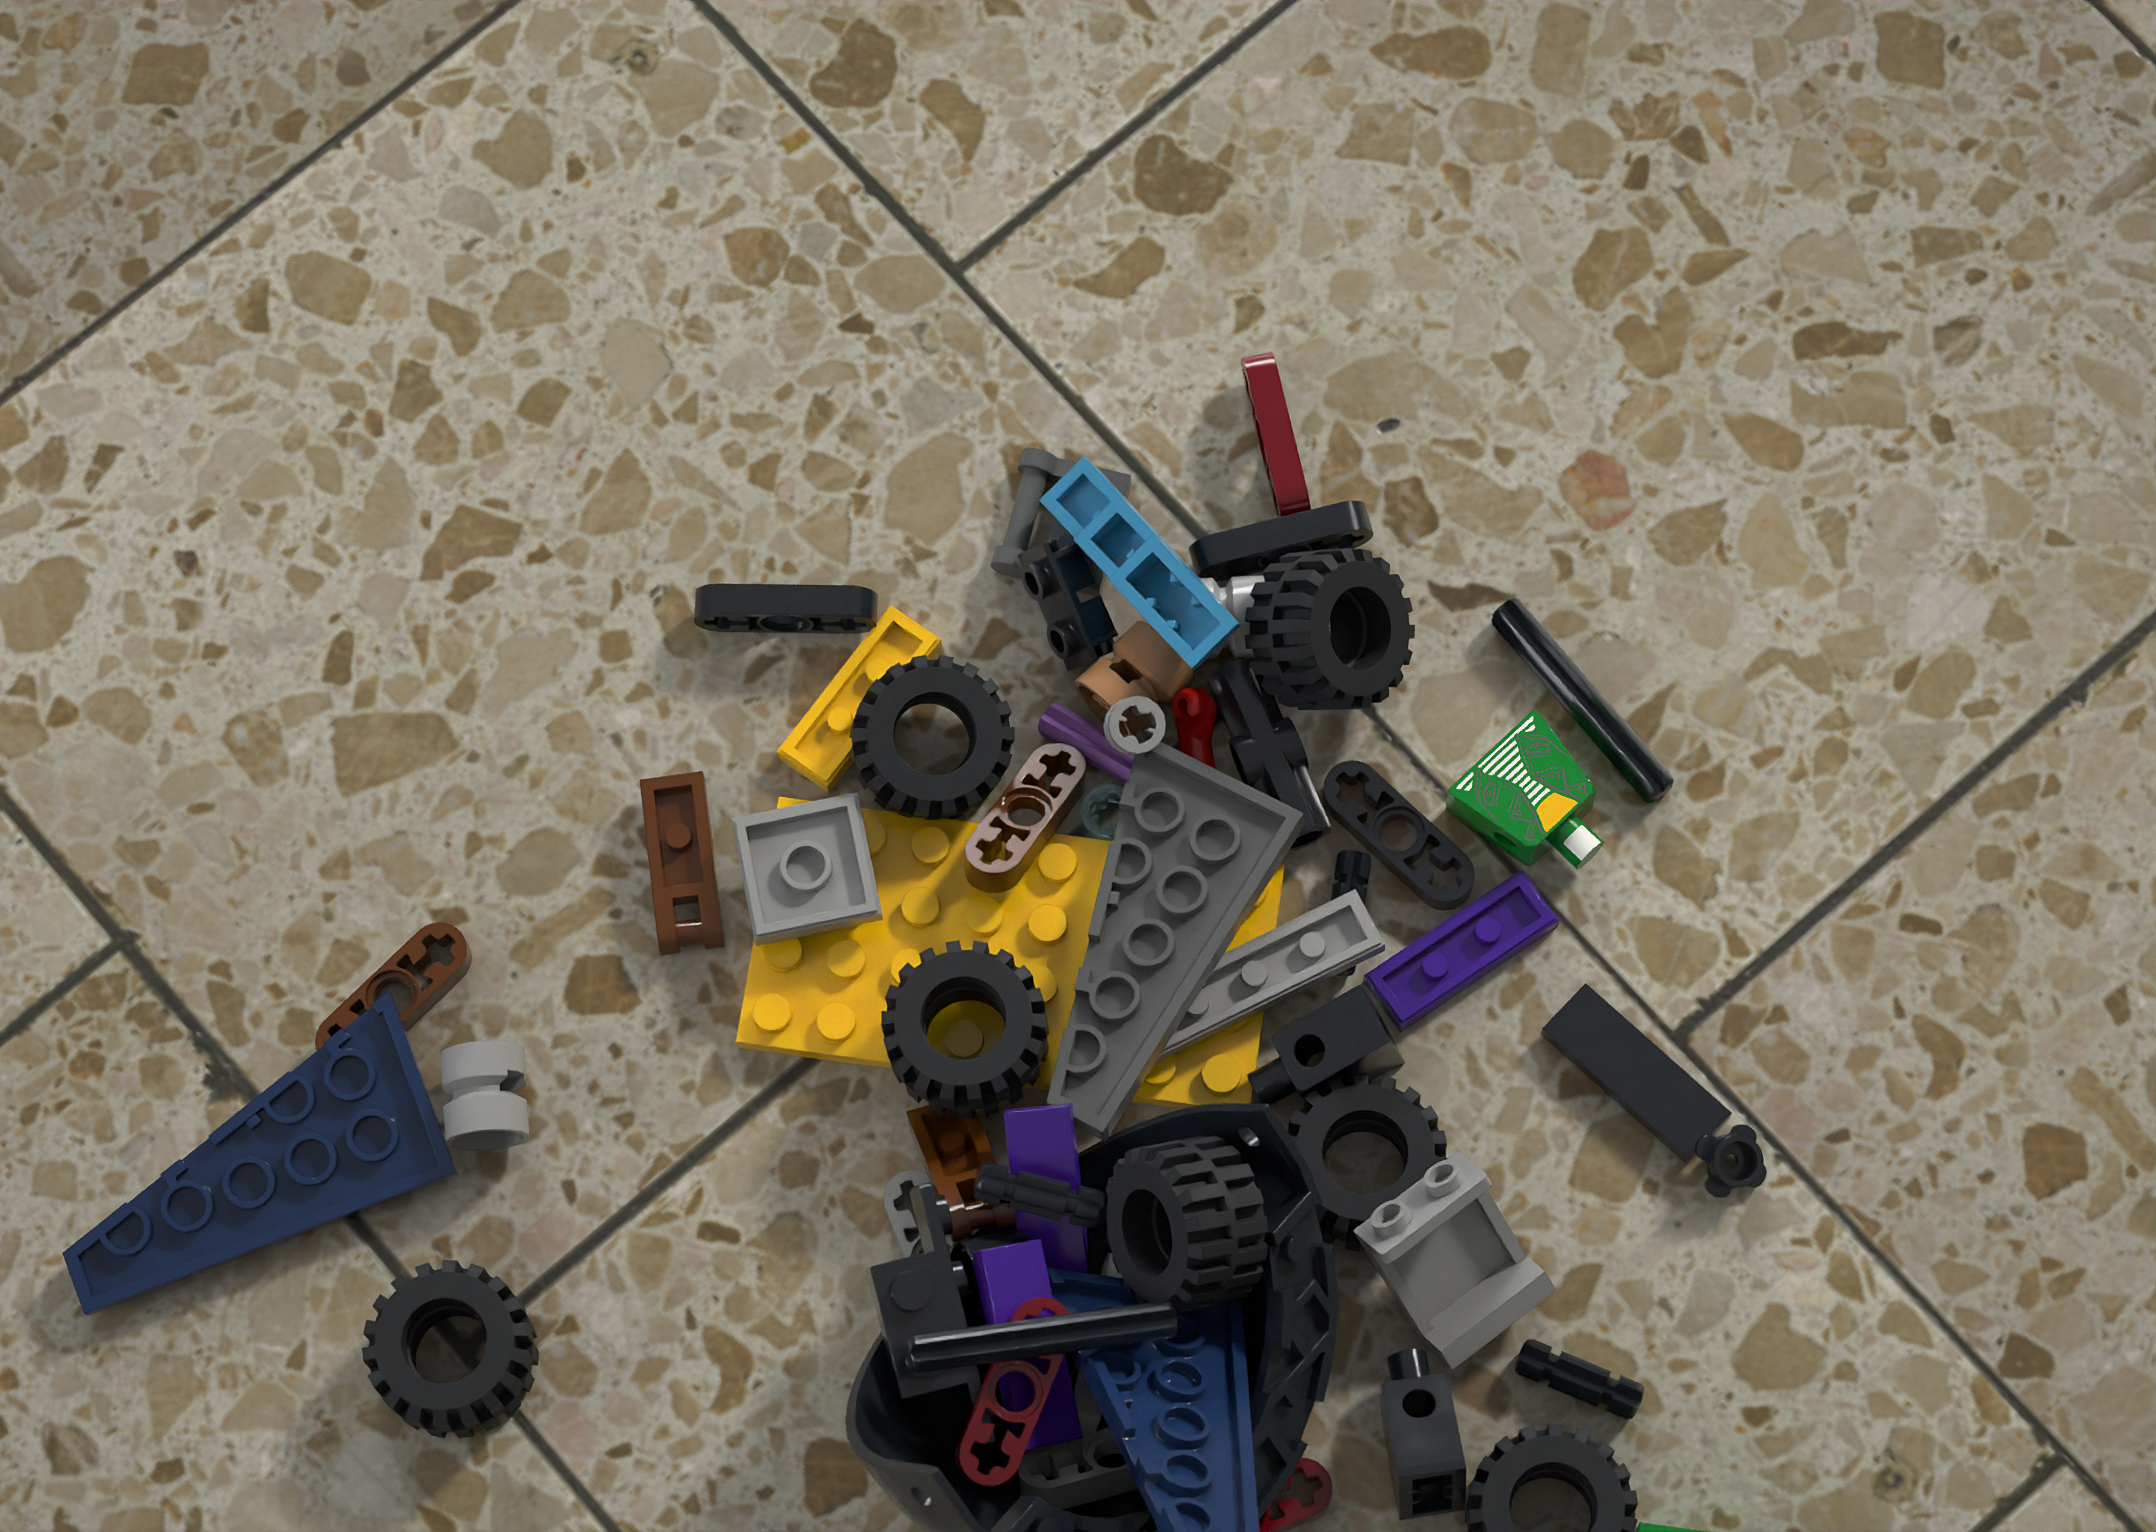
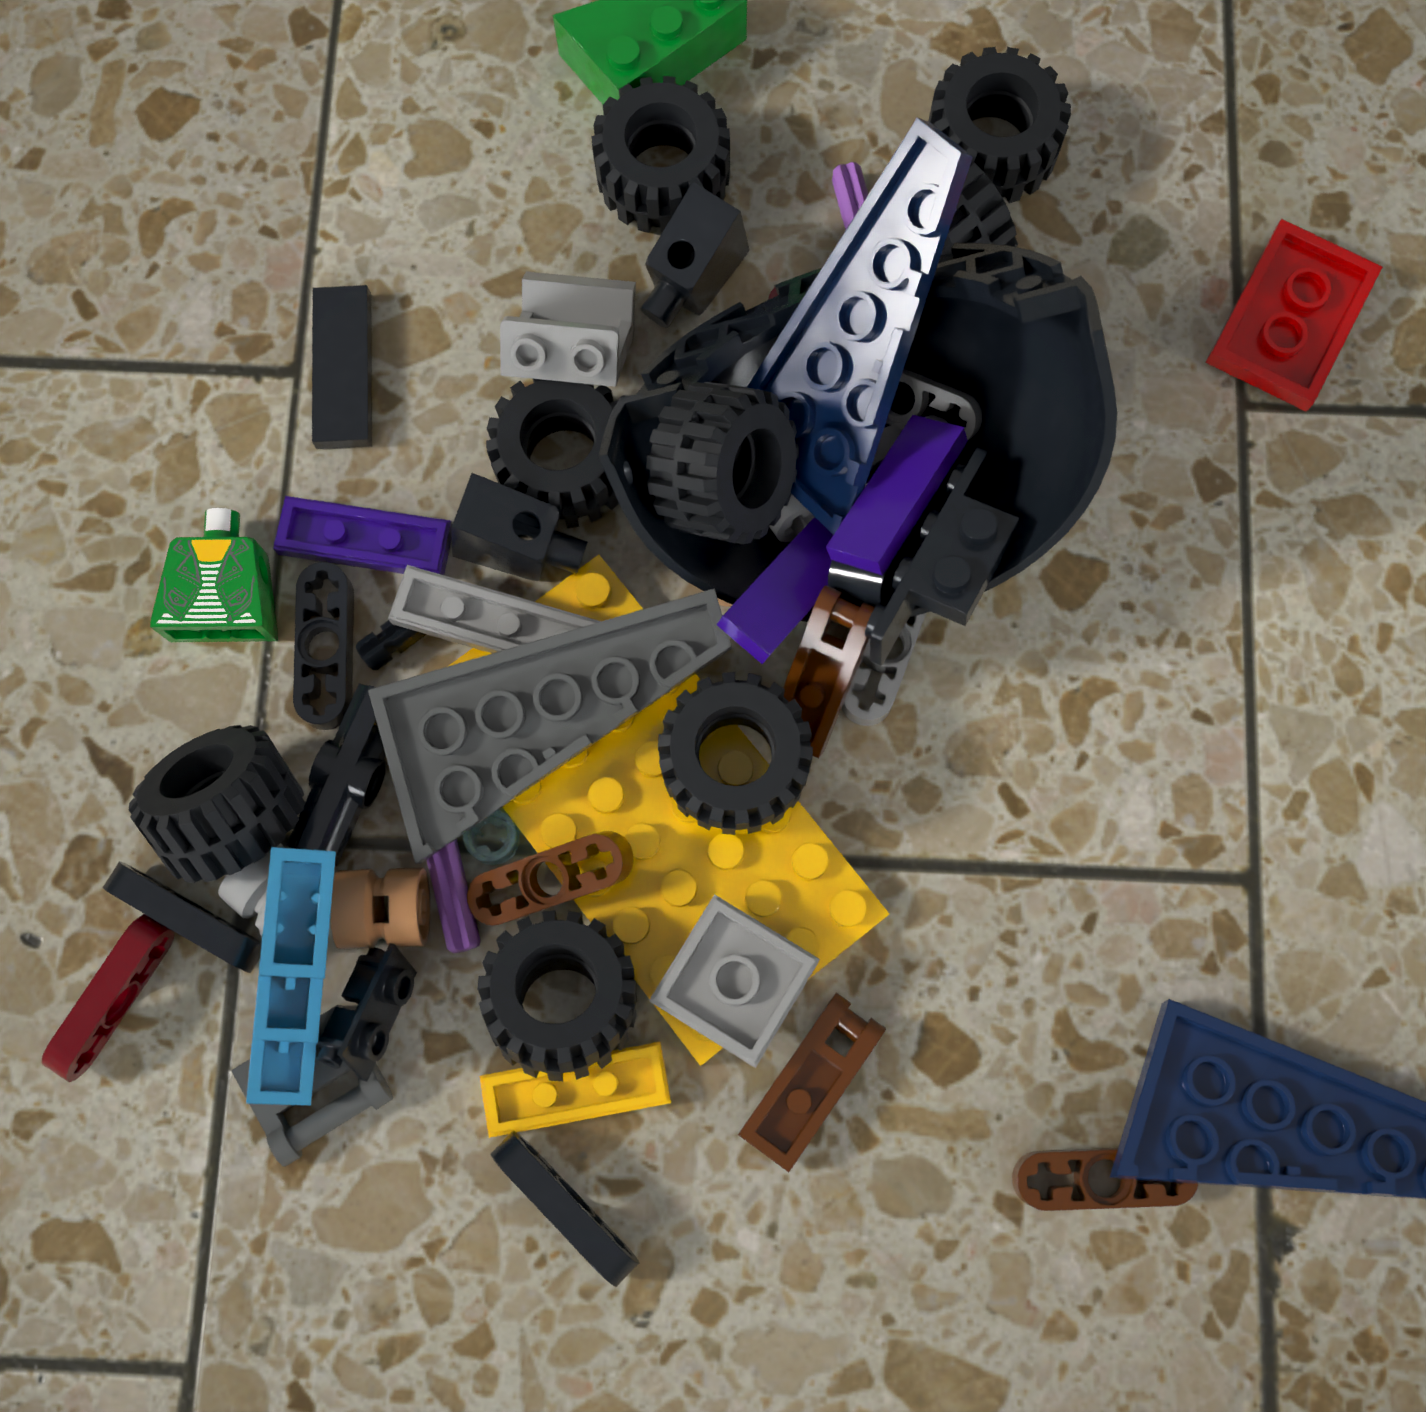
camera: 140 degrees left, 5 degrees up
(418, 1307) = (1324, 862): black tyre -> none
(484, 1091) = (1104, 1034): light grey wheel -> none
(1009, 1445) = (926, 478): dark red beam -> none
(1039, 1195) = (798, 579): black axle -> none
(1042, 1336) = (897, 456): black axle -> none
(1129, 744) = (406, 842): light grey bush -> none
(1195, 723) = (375, 841): red arm -> none
(1579, 1379) = (564, 226): black axle -> none
(1582, 700) = (117, 624): black axle -> none
(1749, 1164) = (343, 260): black plate -> none

